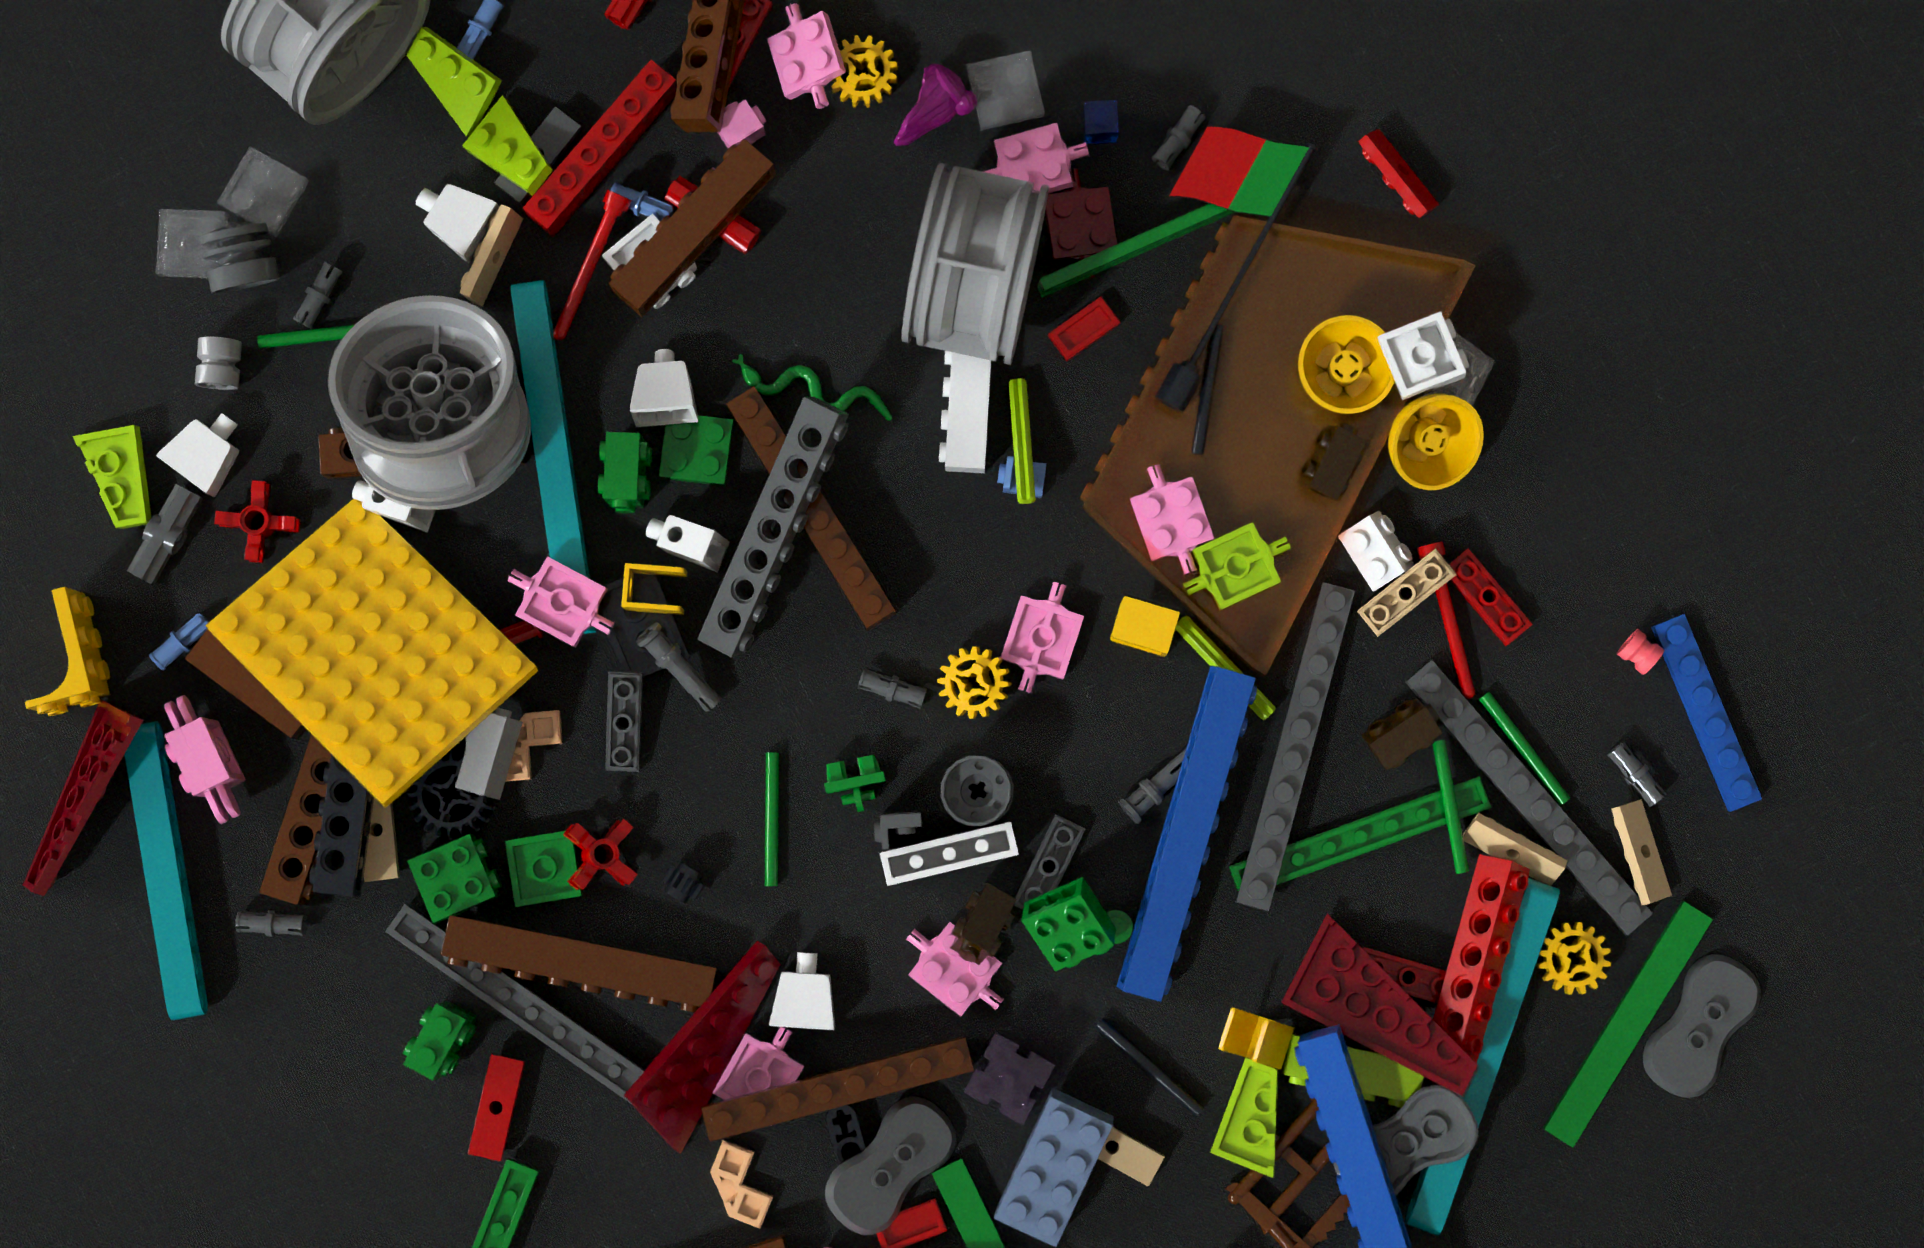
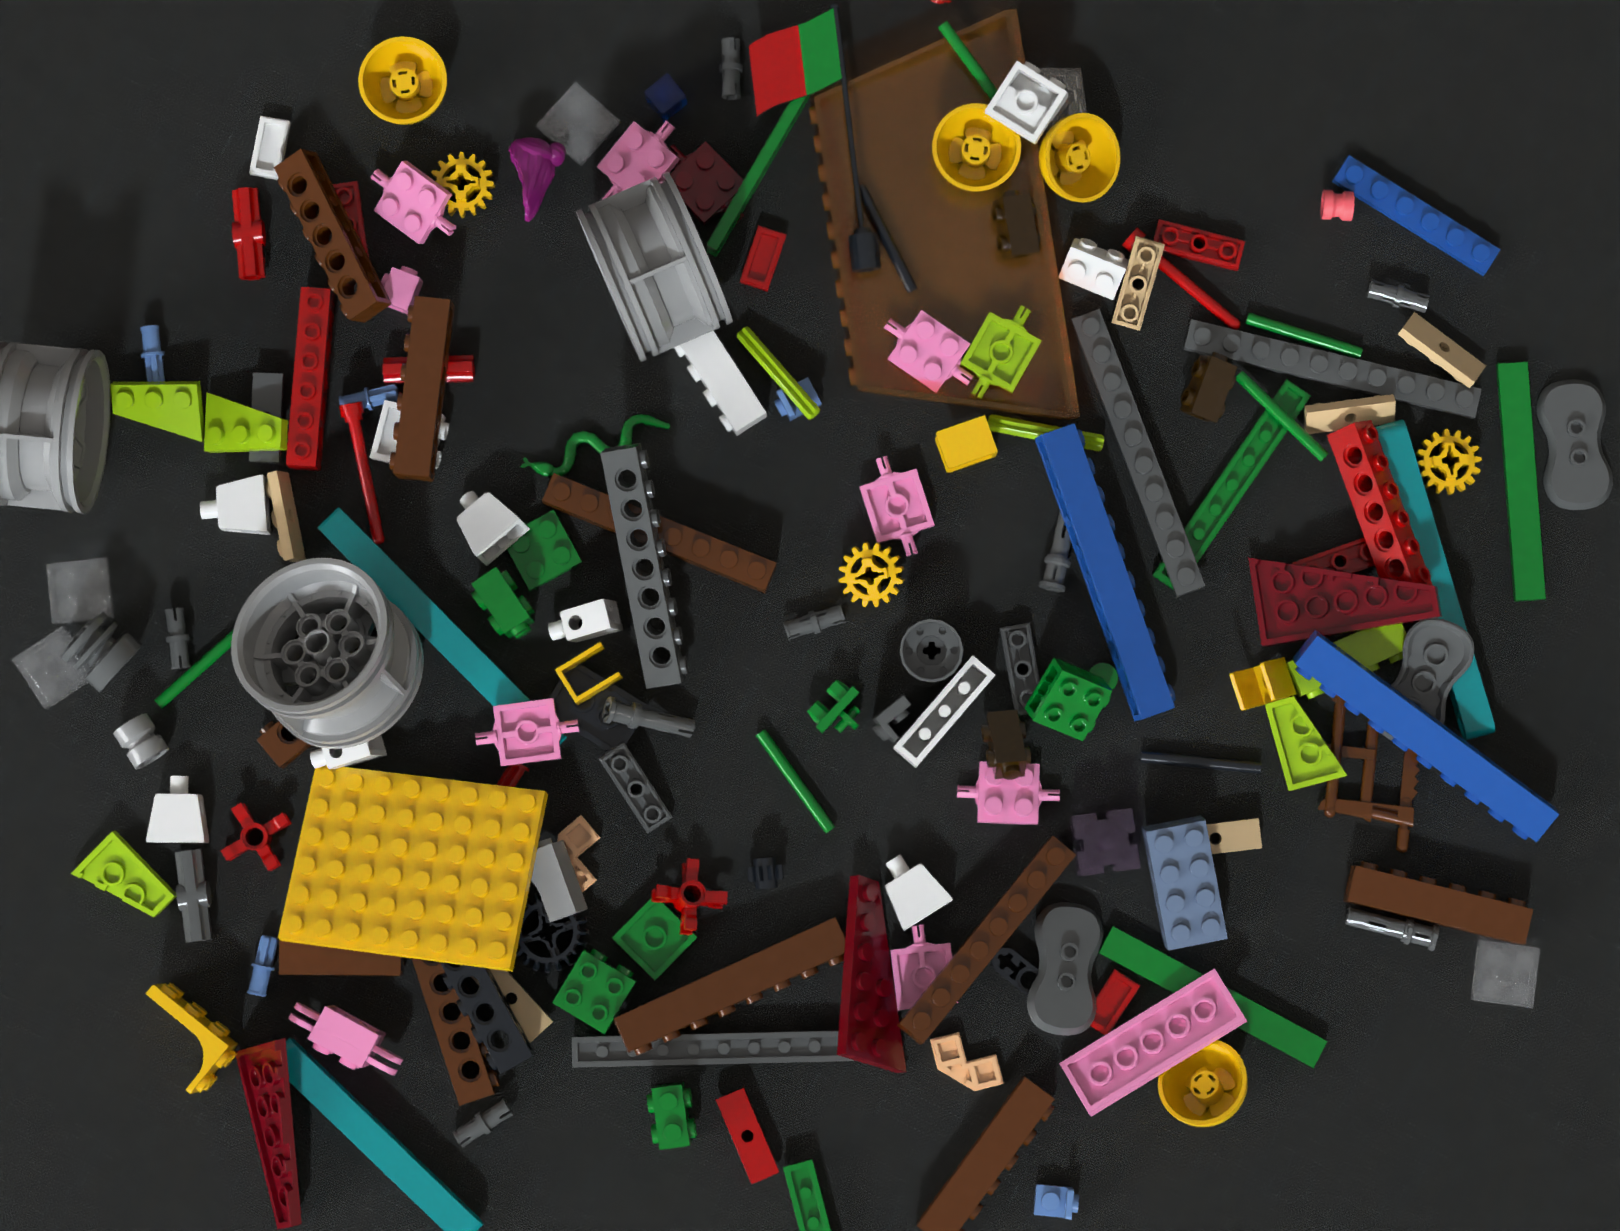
camera: 35 degrees left, 0 degrees up
(1398, 279) = (968, 59): none -> green bar

